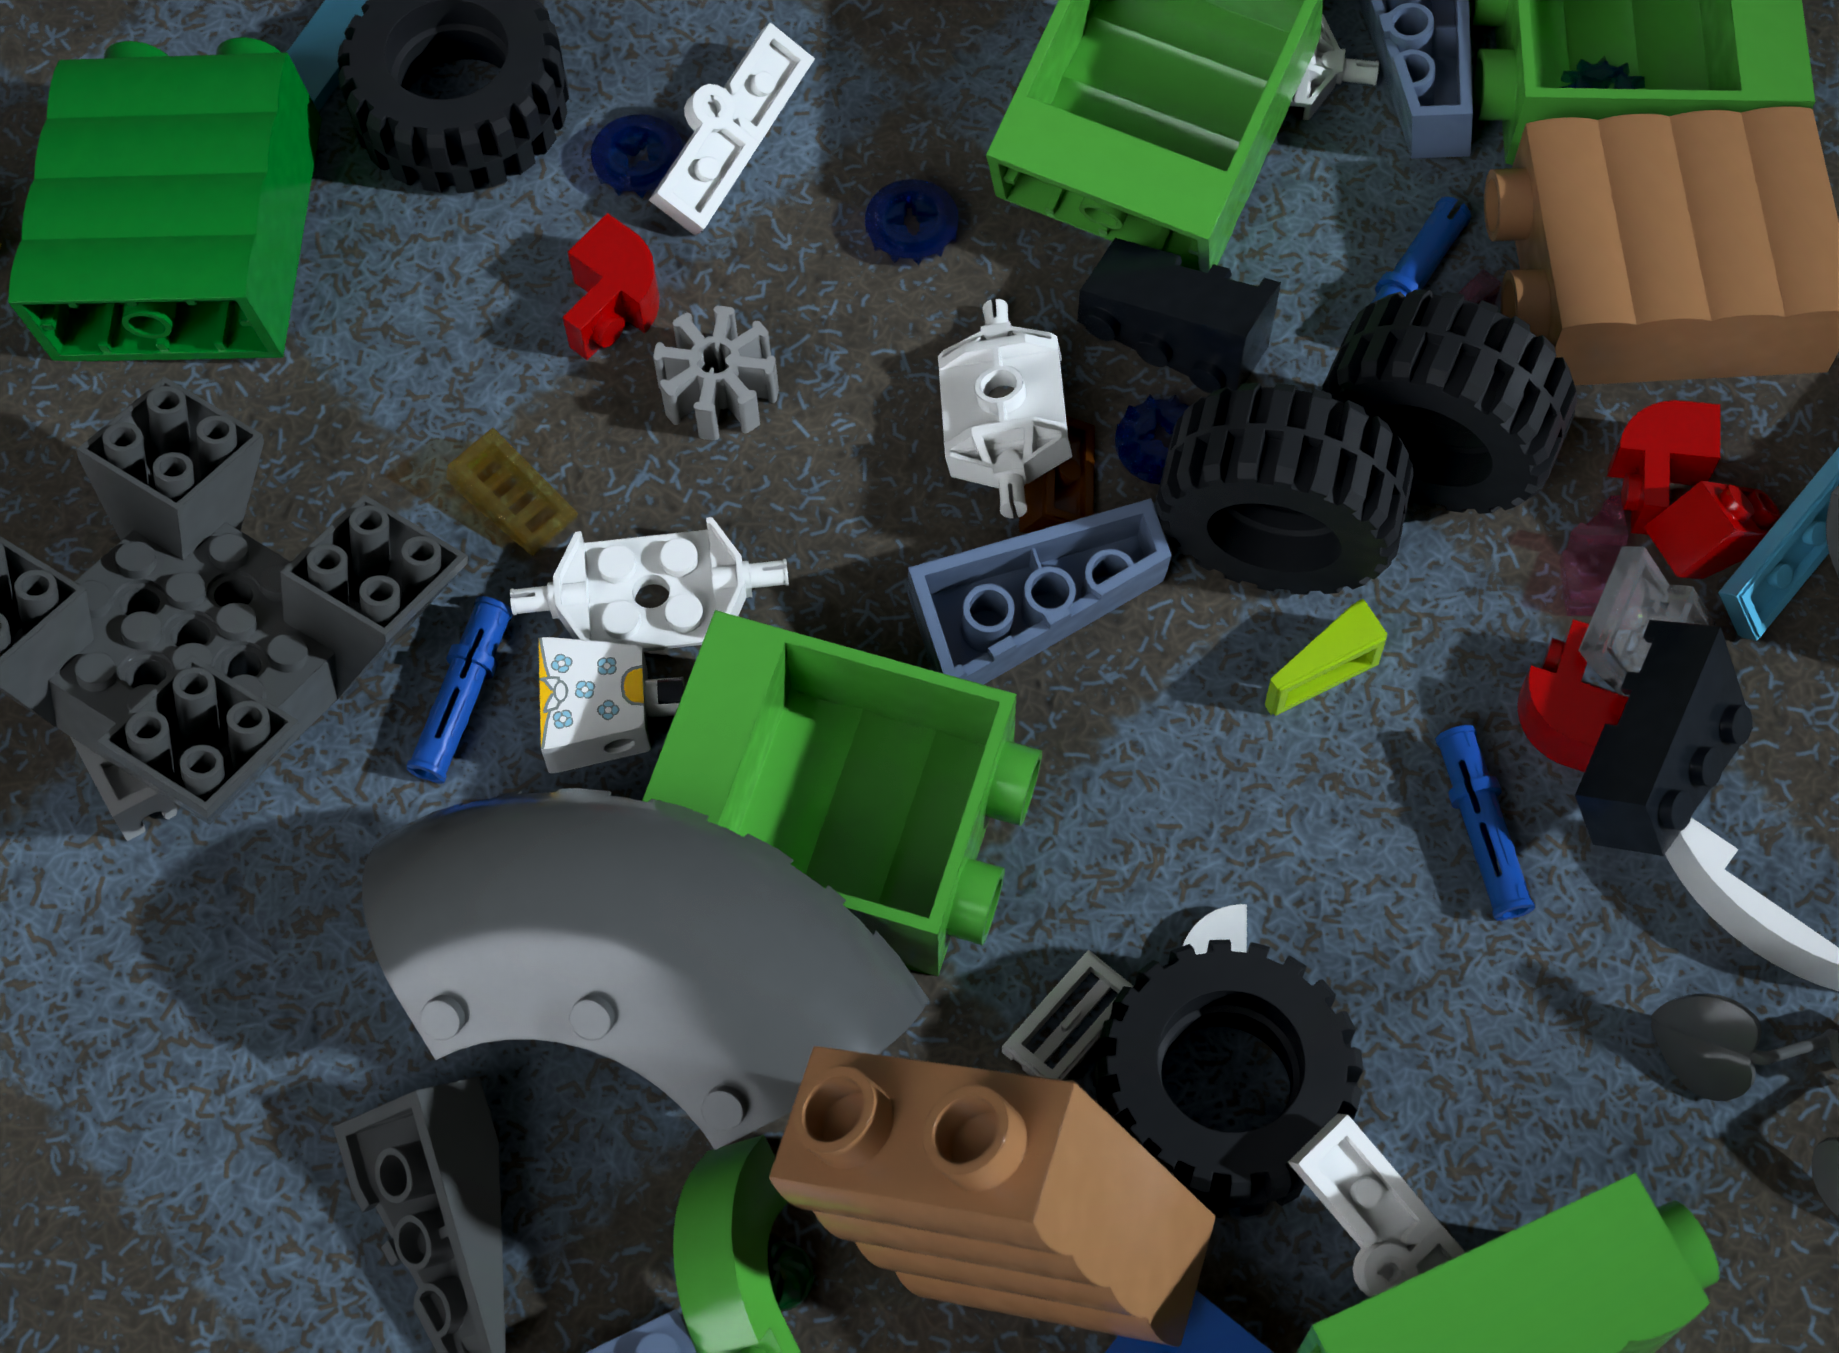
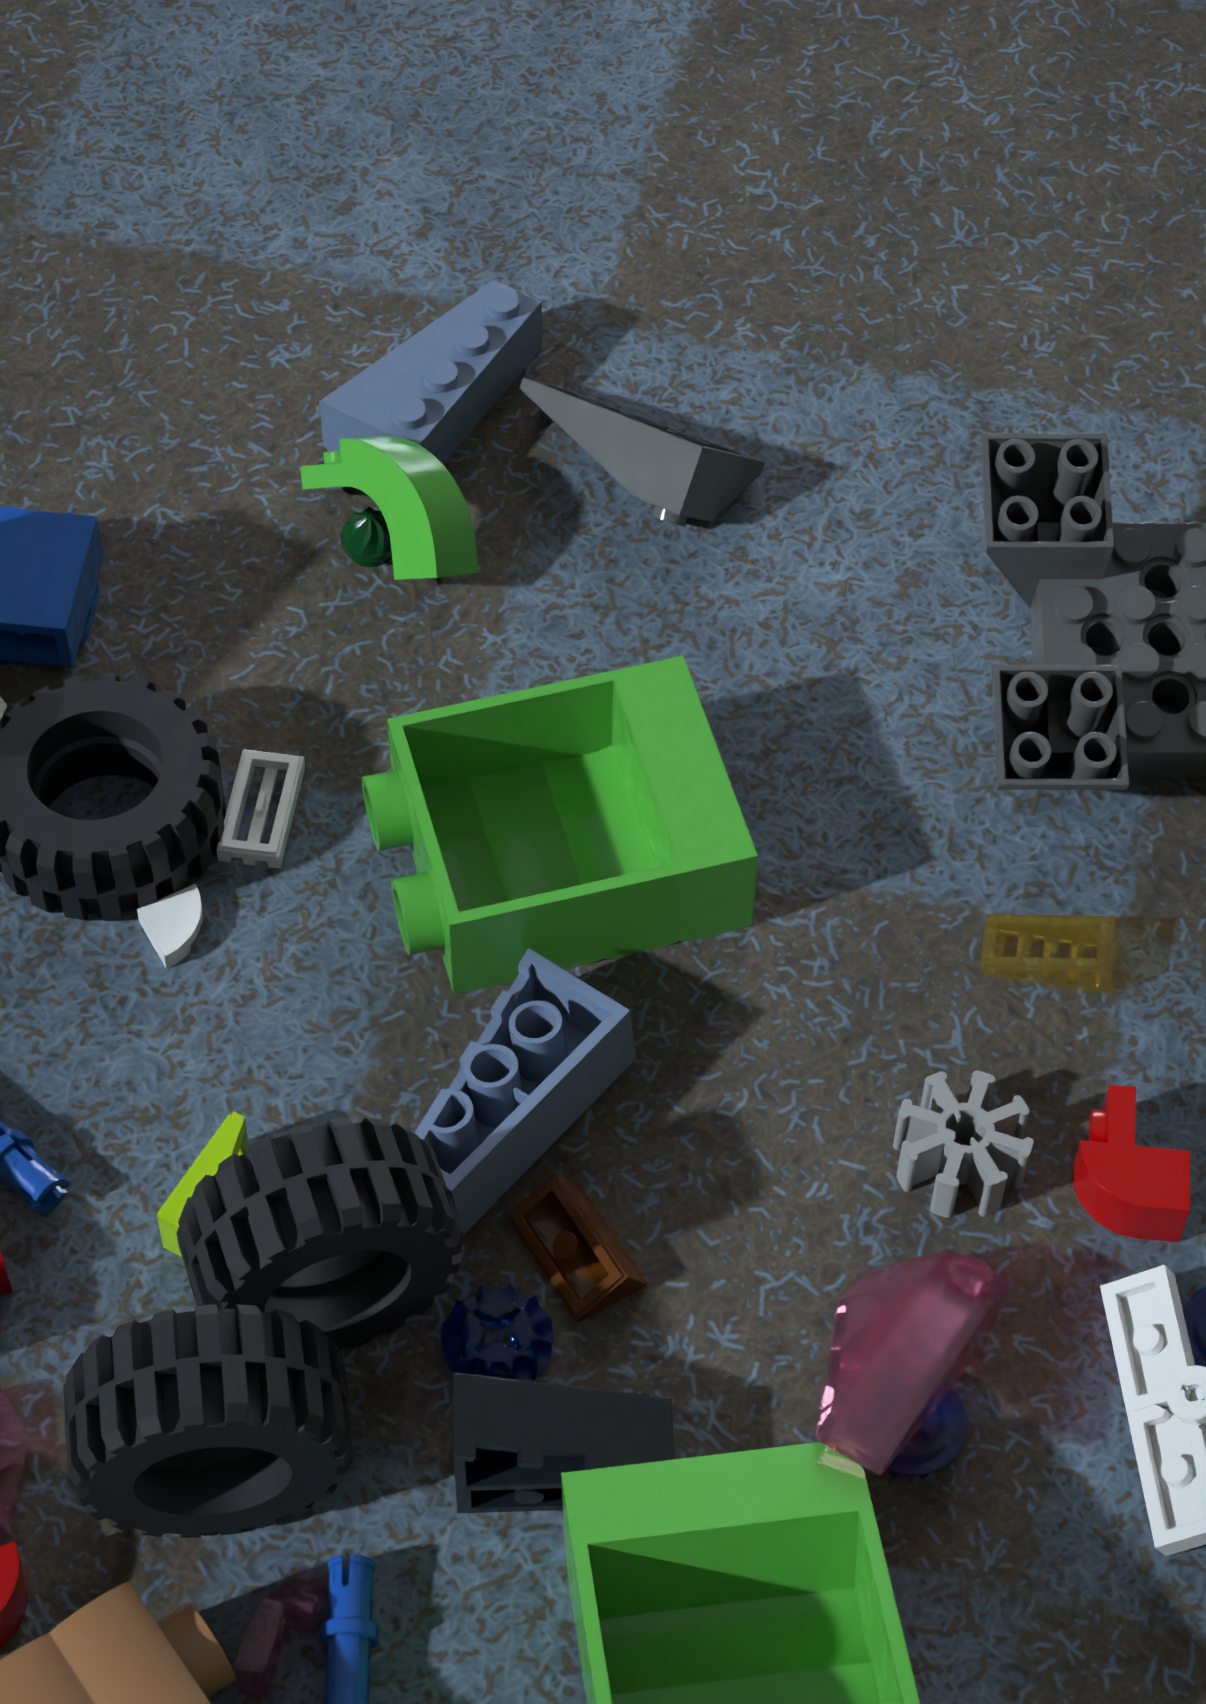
camera: 145 degrees right, 10 degrees down
(469, 667) = (952, 794): blue pin -> none
(598, 701) = (824, 817): white torso -> none
(599, 583) = (883, 892): white plate -> none
(632, 941) = (612, 583): dark grey brick -> none
(883, 231) = (900, 1349): none -> clear pink wedge
(994, 1193) = (206, 517): medium nougat brick -> none
(1007, 437) = (686, 1307): white plate -> none

